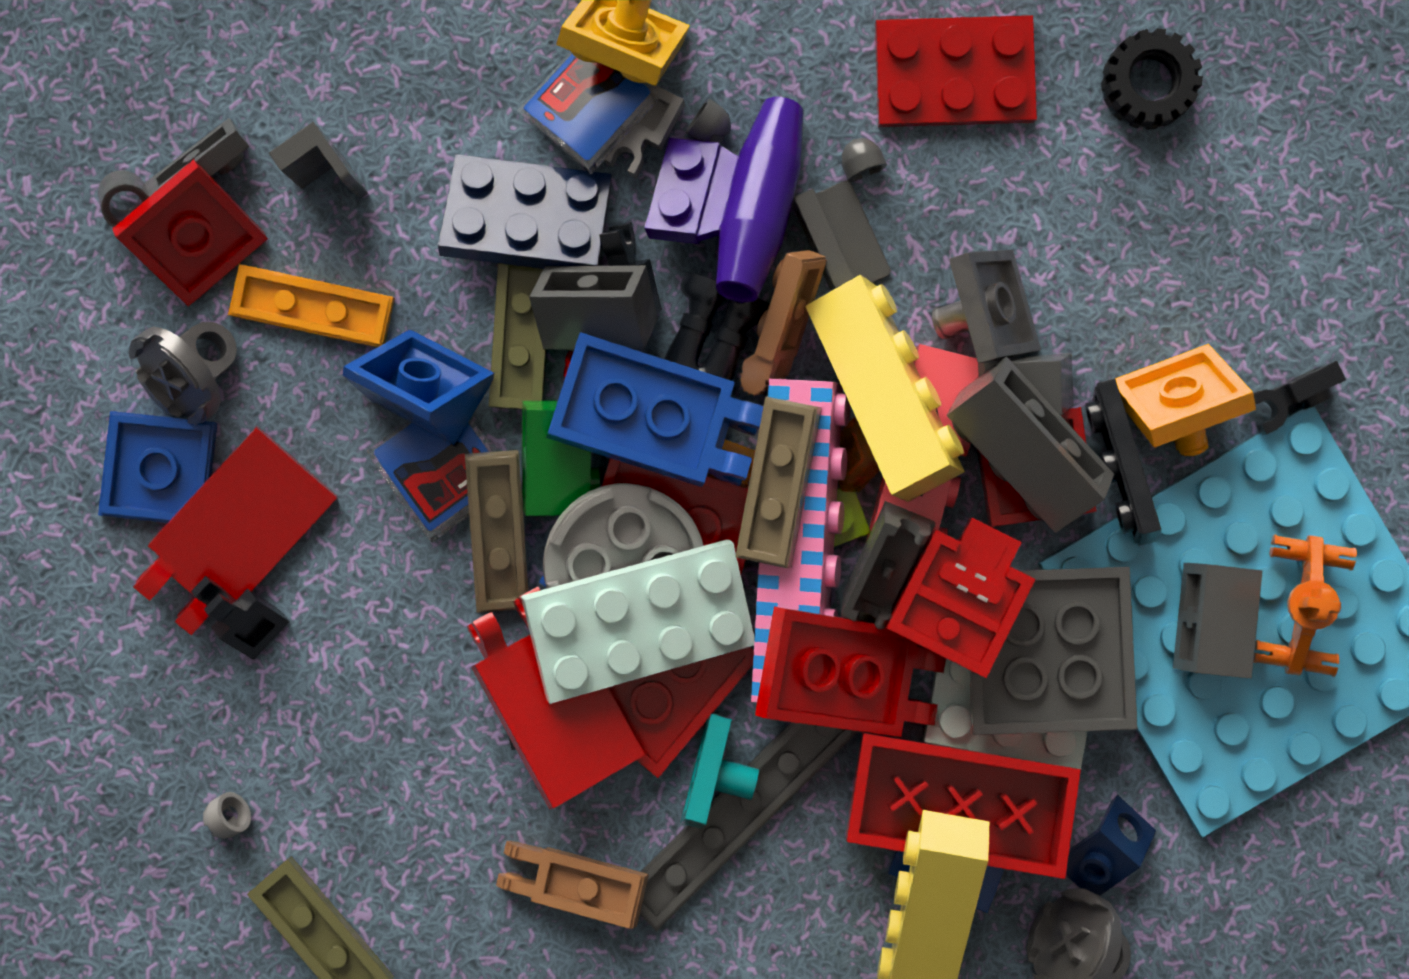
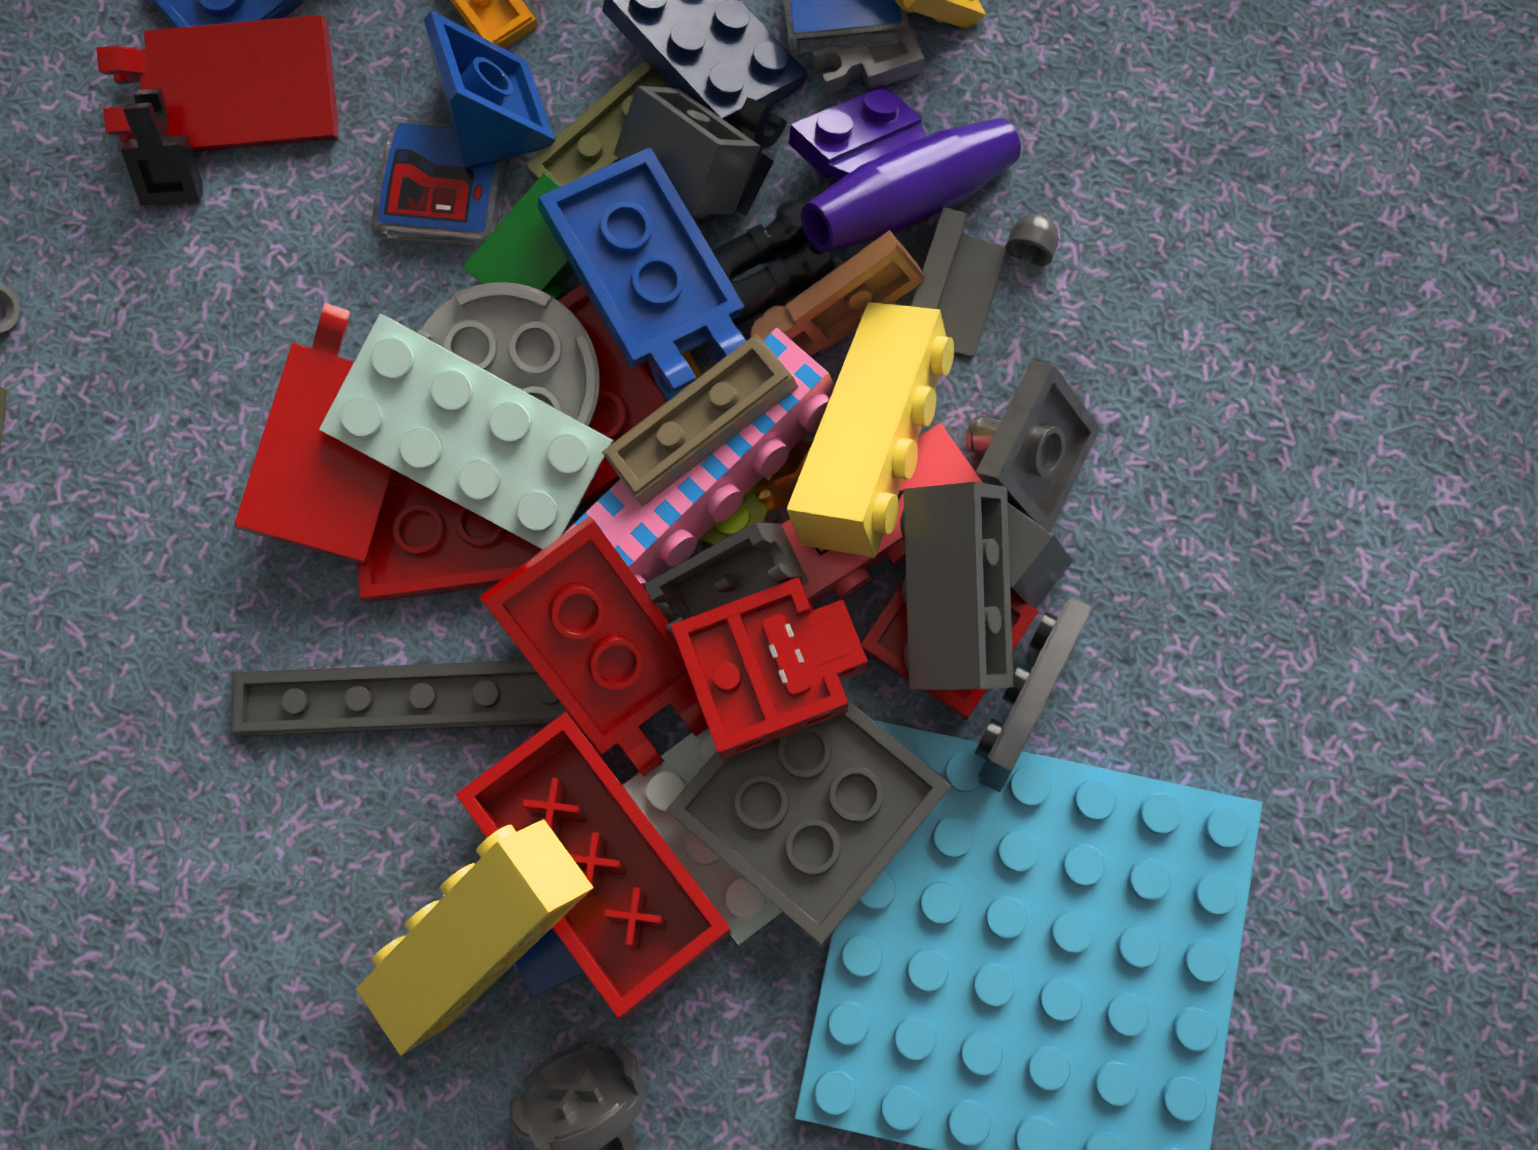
camera: 45 degrees right, 10 degrees down
(496, 529) = (434, 261): dark tan tile -> none
(577, 884) = (203, 628): medium nougat hinge -> none
(710, 123) = (929, 99): dark grey hinge -> none
(715, 774) = (409, 636): teal tile -> none
(955, 71) = (1184, 237): red plate -> none
(1107, 853) = (689, 1045): dark blue bracket -> none
(1177, 60) = (1385, 361): black tyre -> none
(1184, 398) = (1139, 685): light orange tile -> none
(1217, 620) = (993, 914): dark grey hinge -> none
(1307, 389) = (1270, 782): black plate -> none
(1310, 605) = (1093, 977): orange axle -> none

